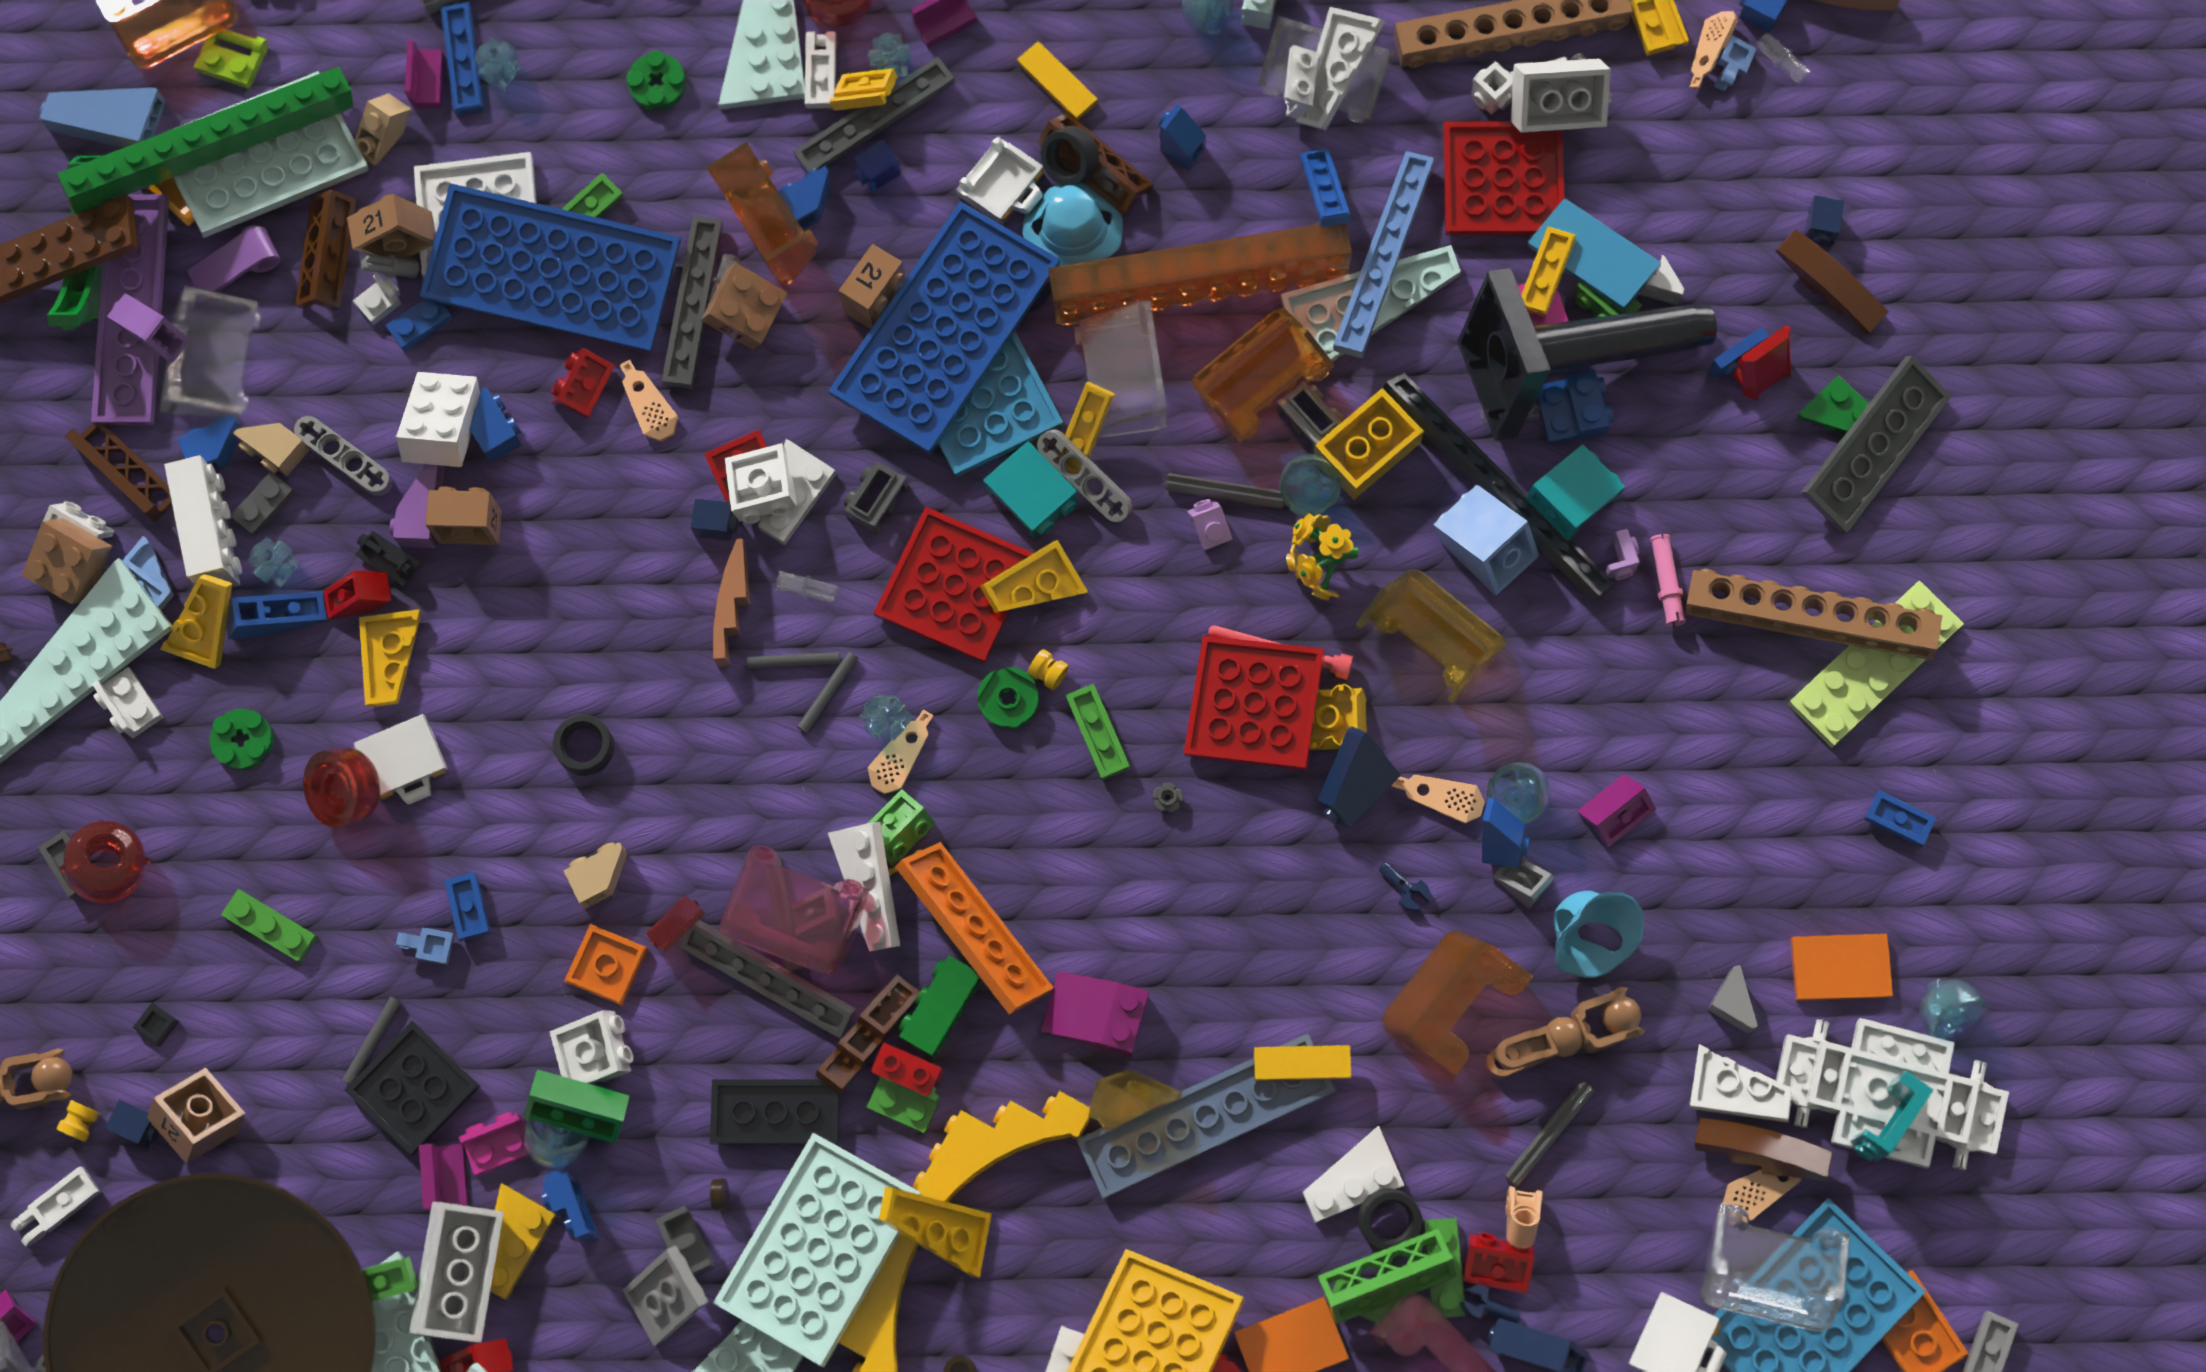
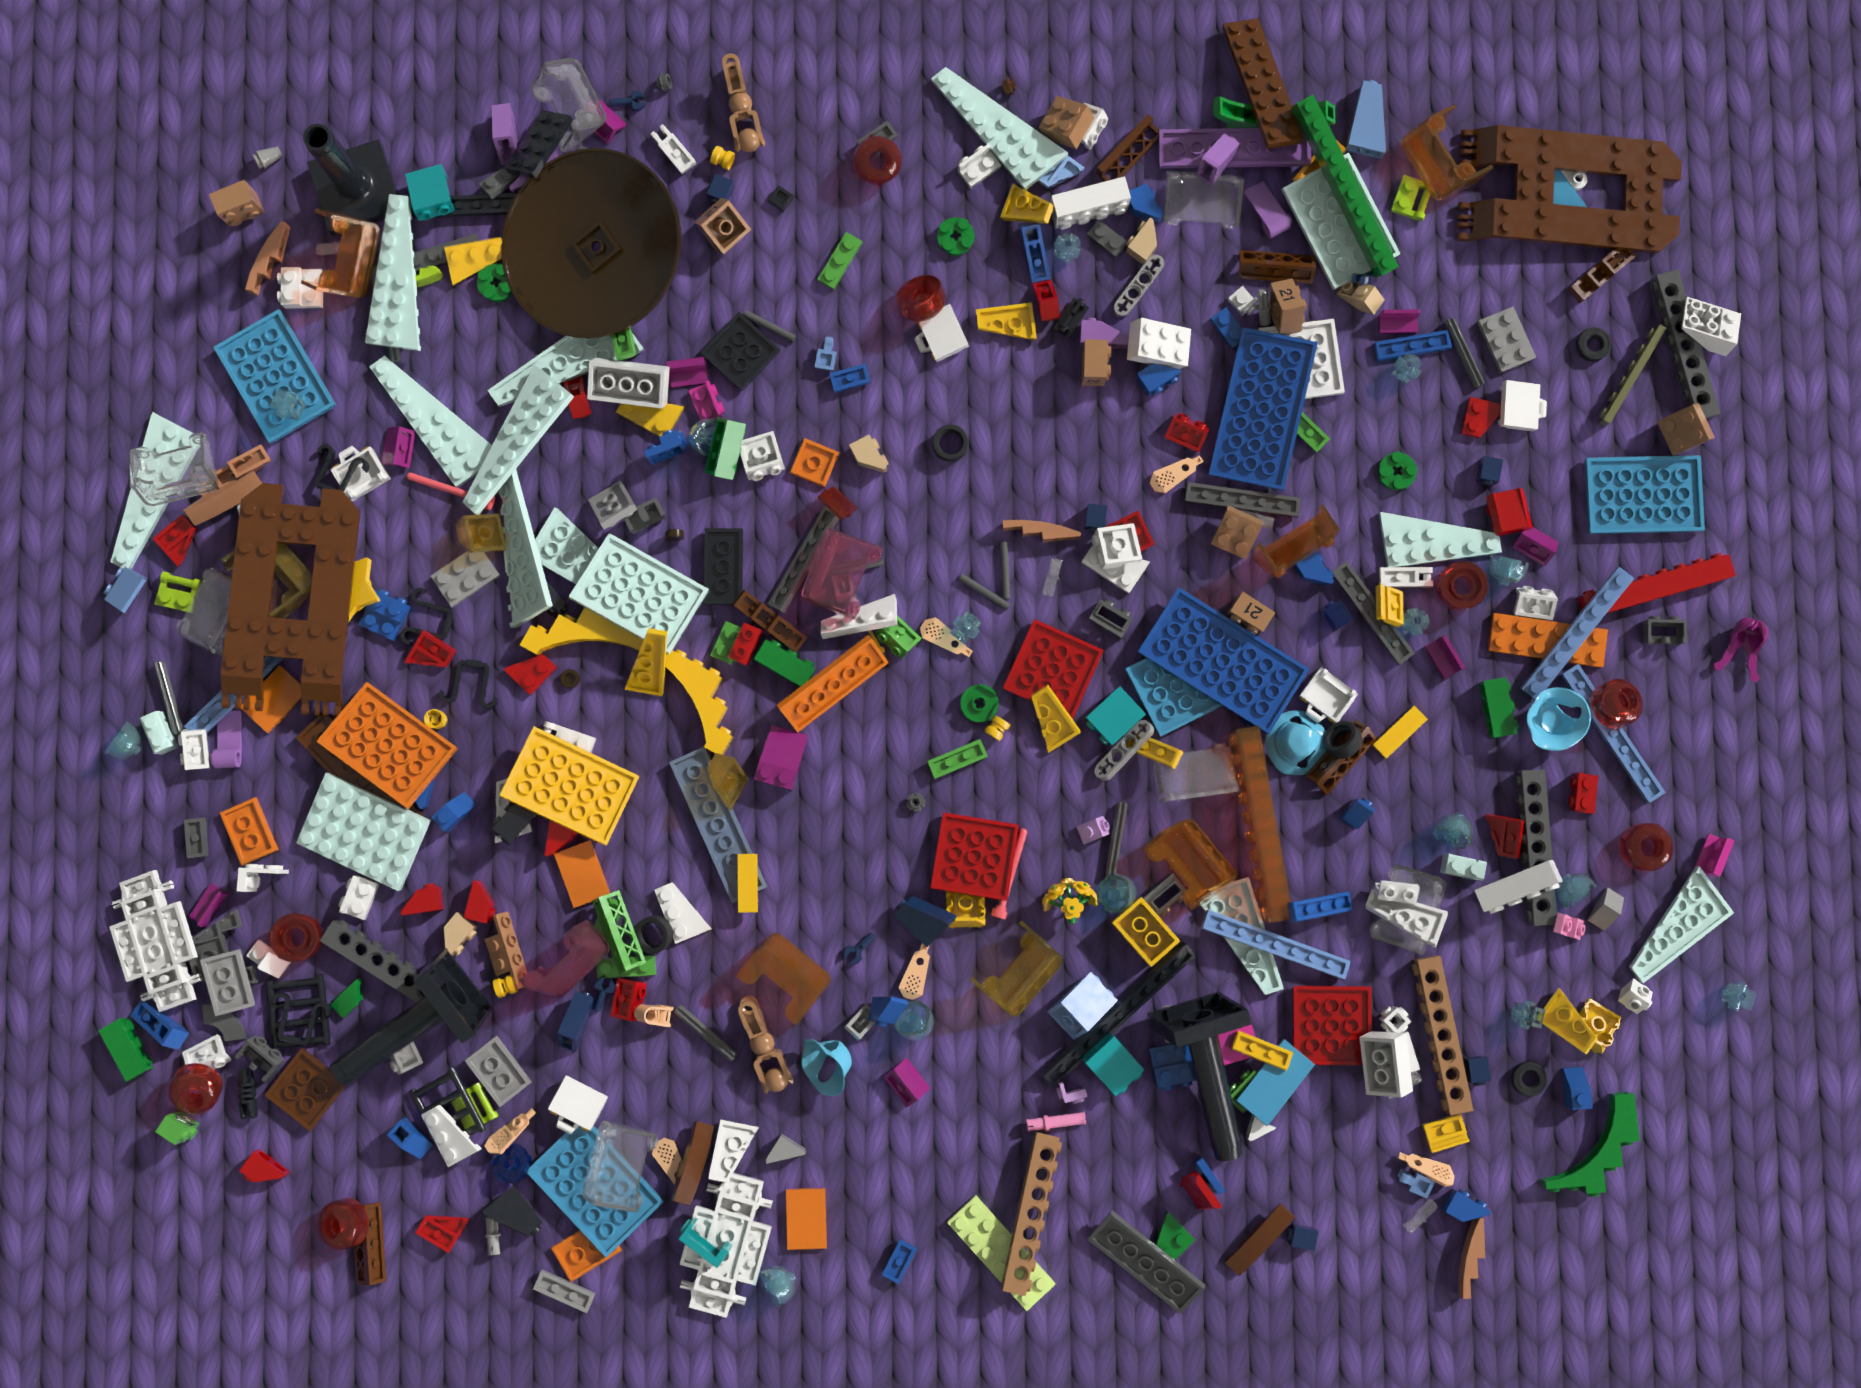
camera: 85 degrees right, 10 degrees up
(352, 118) = (1363, 279): none -> dark blue bar

